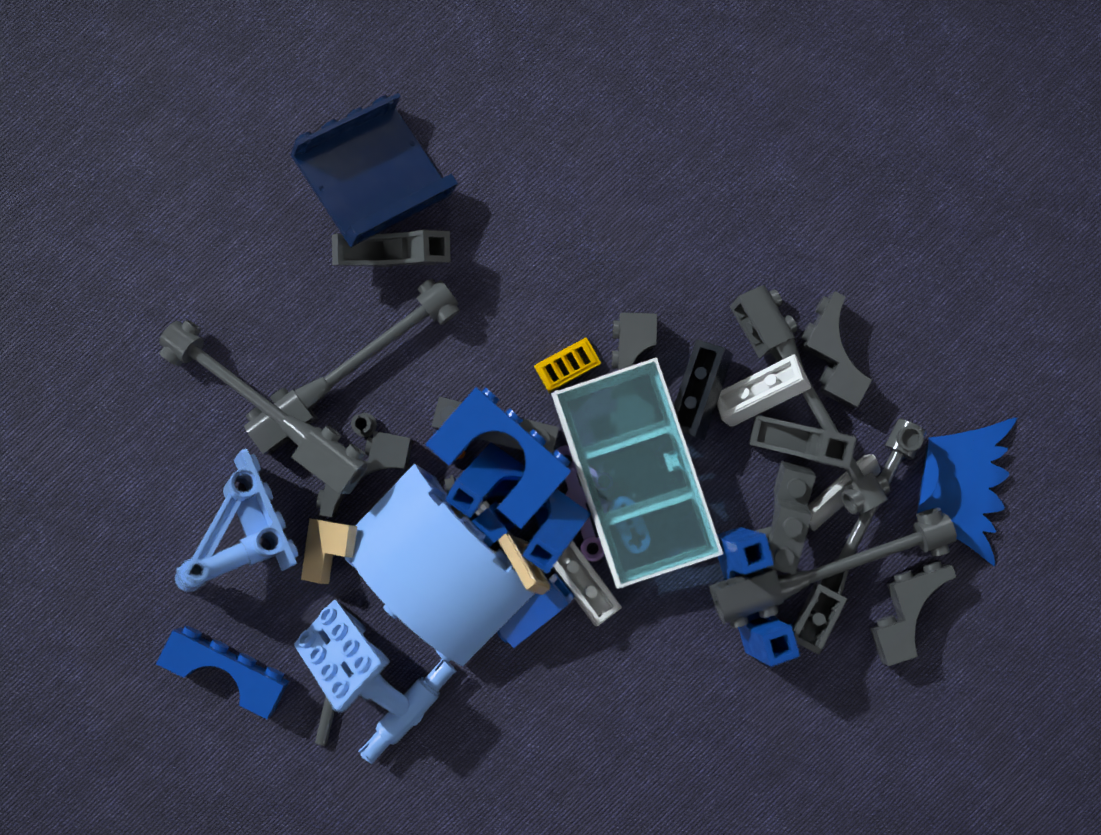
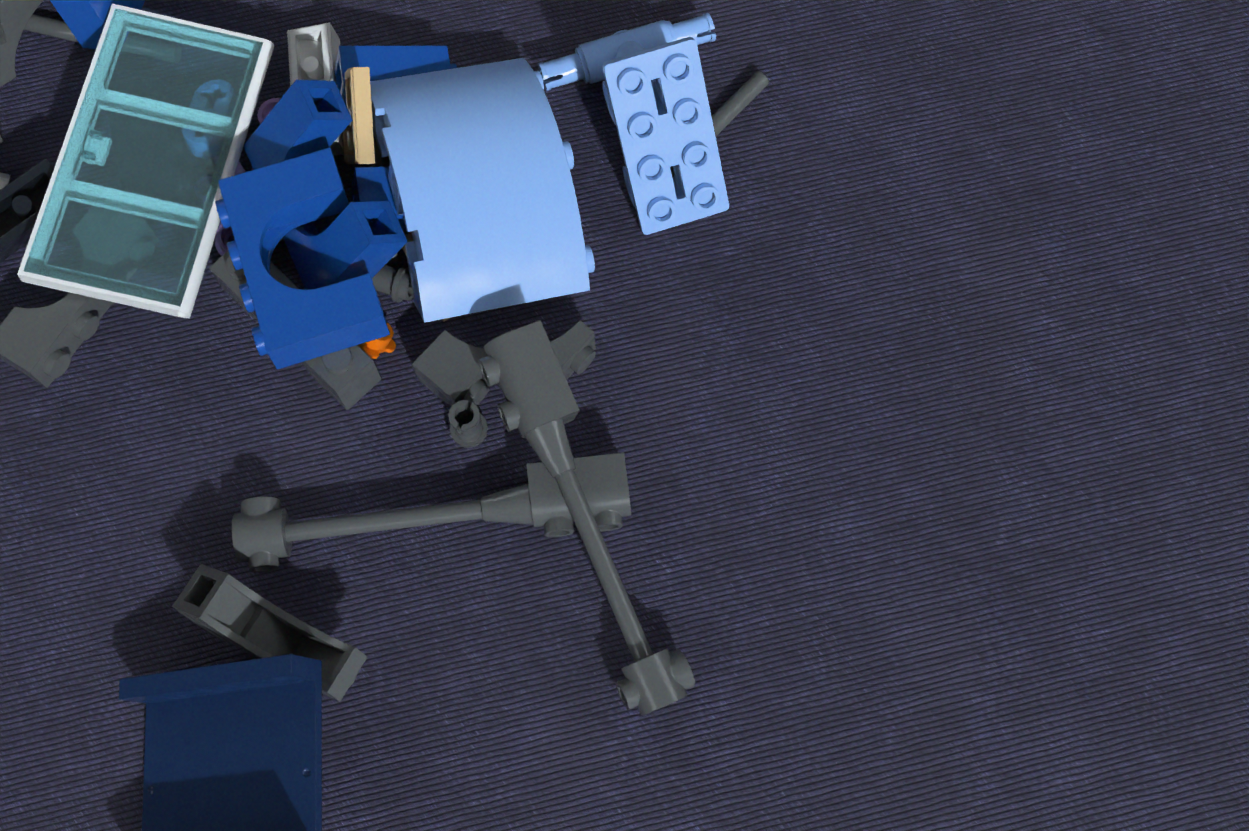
camera: 150 degrees left, 15 degrees down
(257, 521) = (688, 340): light blue plate -> none
(258, 687) = (871, 260): blue arch -> none
(323, 542) = (611, 303): tan tile -> none
(544, 375) = (186, 372): yellow slope -> none

